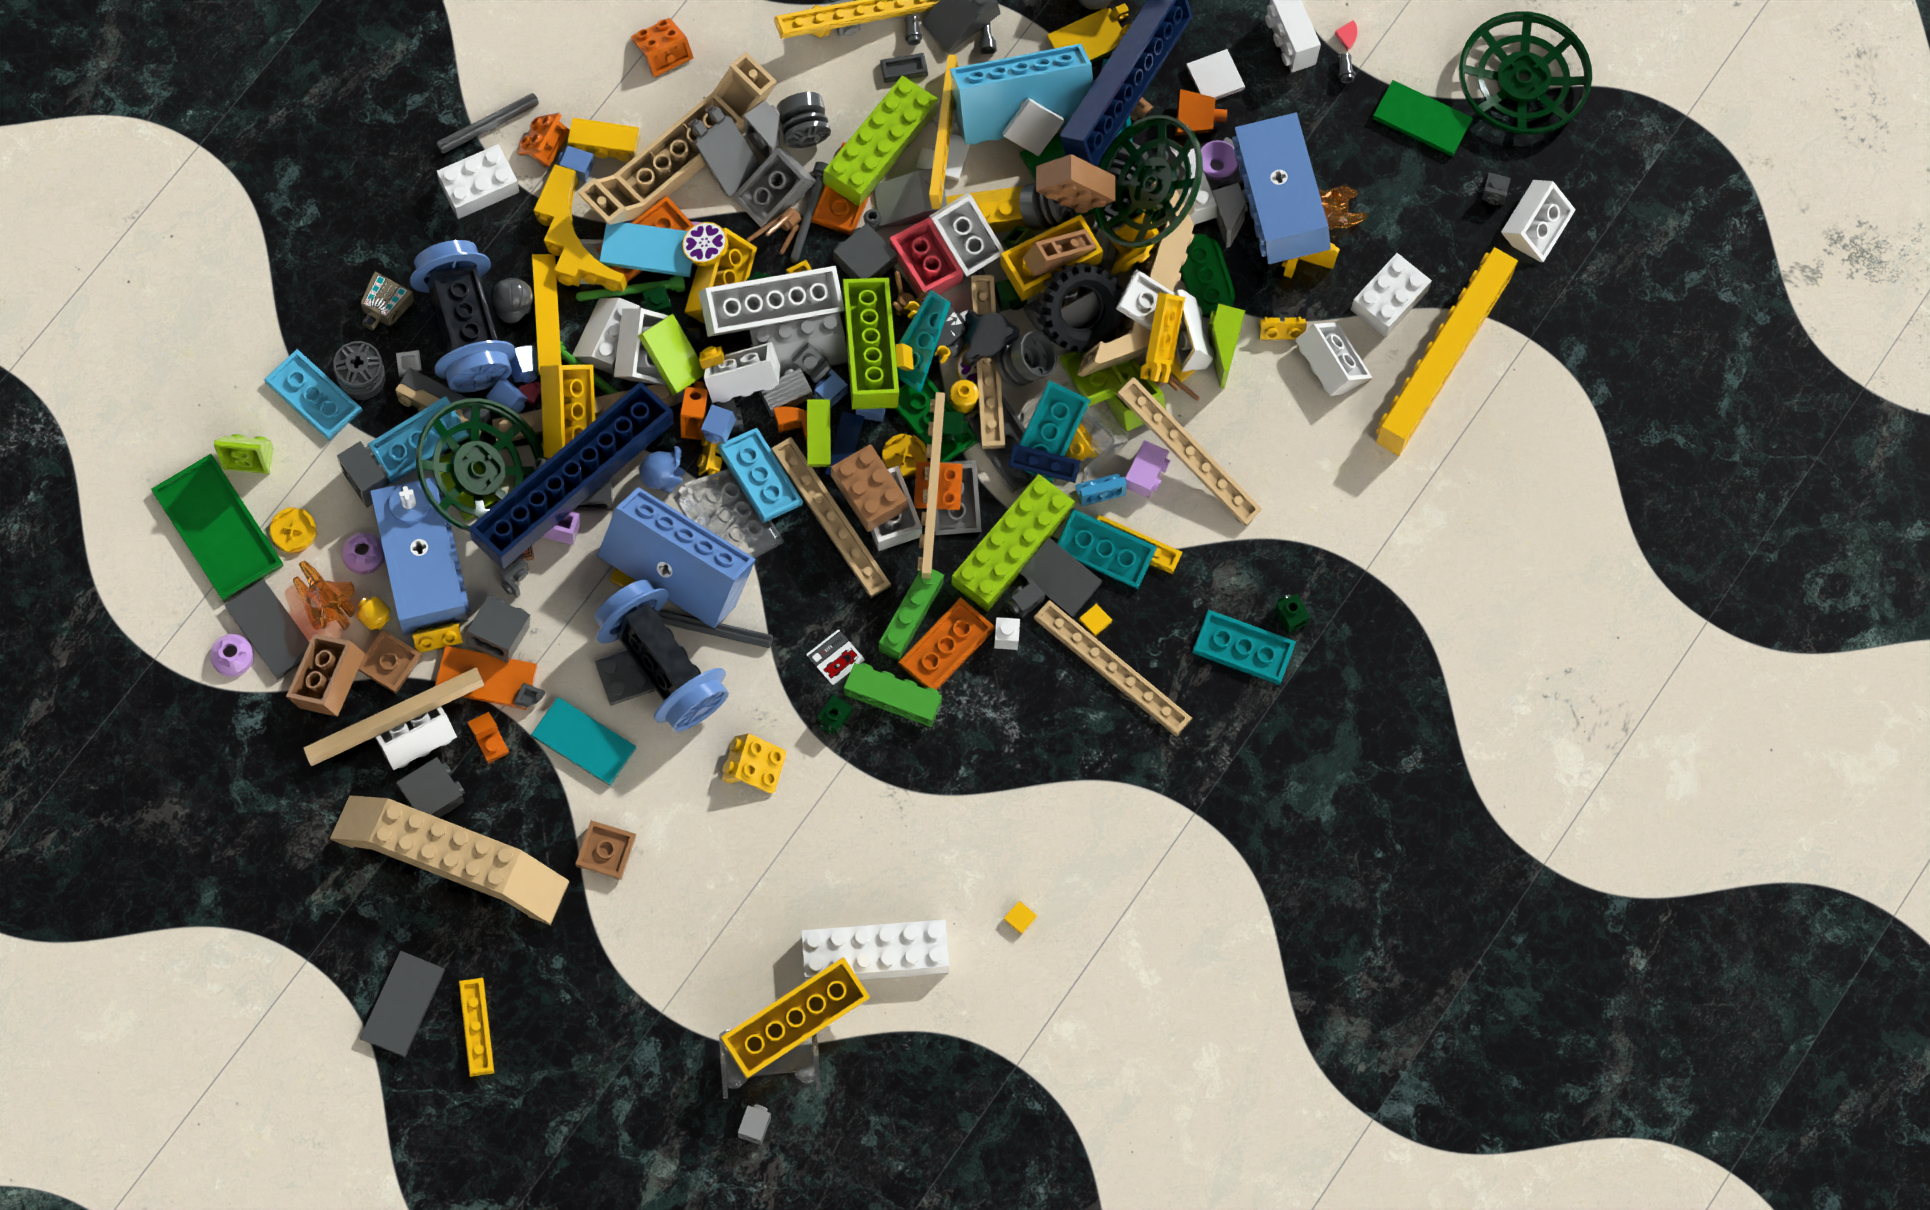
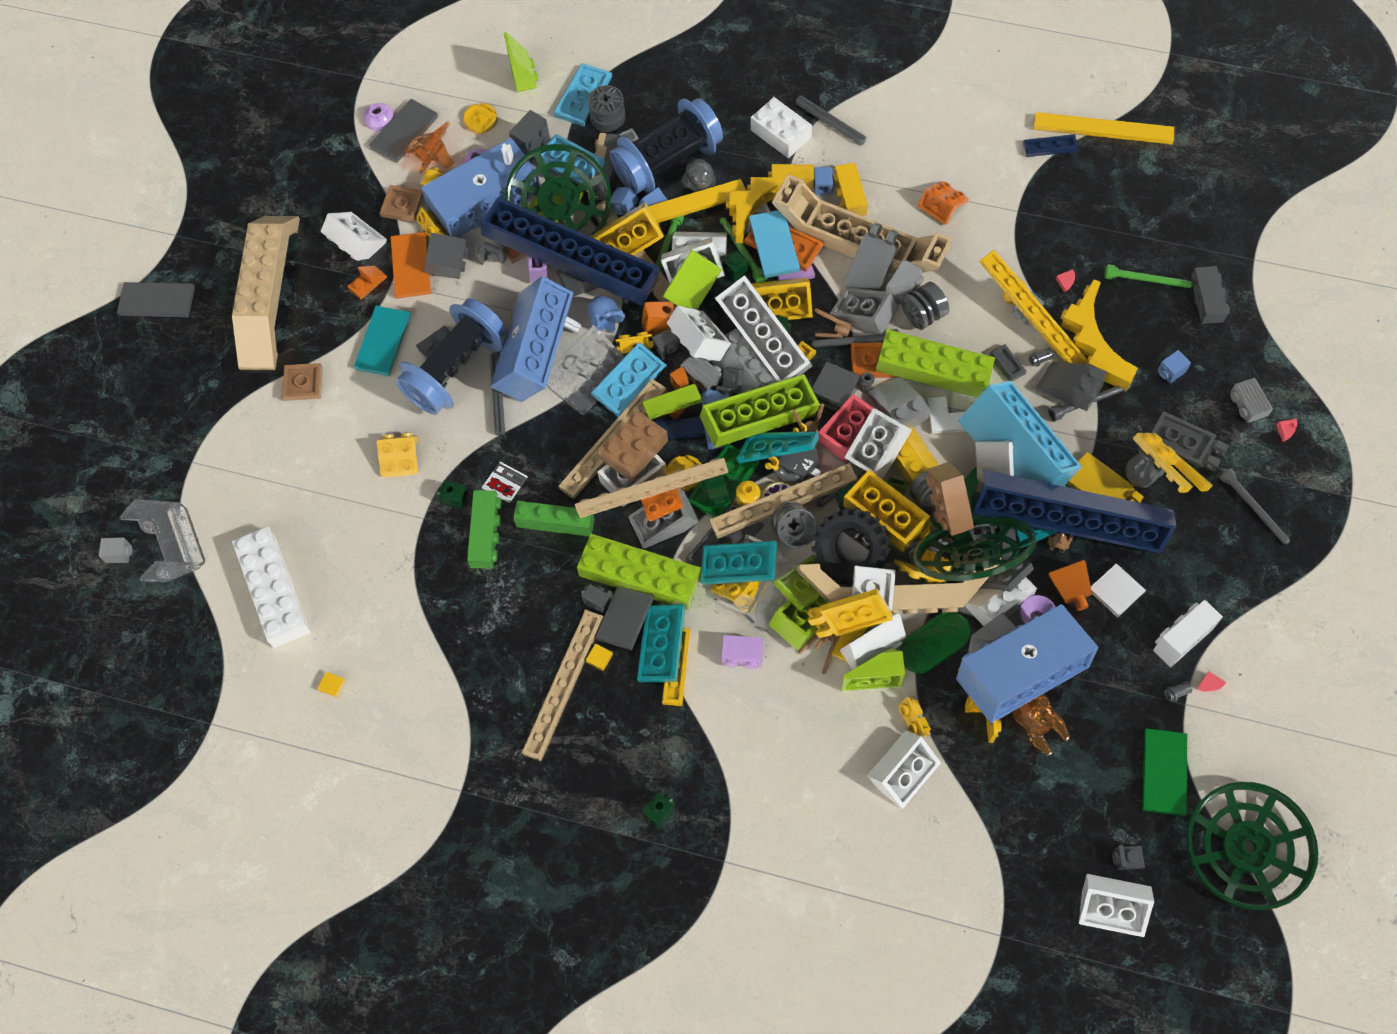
camera: 80 degrees right, 5 degrees down
(217, 527) = (465, 77): green tile -> none
(325, 675) = (374, 166): medium nougat brick -> none
(384, 301) = (664, 105): torso -> none
(393, 716) = (361, 219): tan tile -> none
(432, 789) = (312, 259): dark grey piece -> none
(476, 1027) = (150, 349): yellow tile -> none
(528, 696) = (402, 292): dark grey tile -> none
(544, 139) = (831, 156): orange bracket -> none
(705, 243) = (790, 273): tile -> none
(711, 357) = (702, 309): yellow plate -> none
(718, 425) = (649, 332): medium blue brick -> none
(795, 1017) = (190, 541): yellow brick -> none
(904, 357) = (756, 436): yellow tile -> none
(943, 137) = (941, 402): yellow tile -> none
(946, 645) = (539, 555): orange tile -> none
(987, 336) = (799, 489): black tile -> none
(1007, 633) = (561, 593): white brick -> none
(1044, 463) = (711, 569): dark blue tile -> none
(1058, 251) = (886, 507): medium nougat slope -> none
(1101, 489) = (710, 621): dark azure bracket -> none
(1188, 451) = (764, 675): tan plate -> none
(1244, 647) = (617, 782): teal tile -> none
(1391, 295) = (983, 797): white brick -> none
(1445, 351) = (951, 861): yellow brick -> none

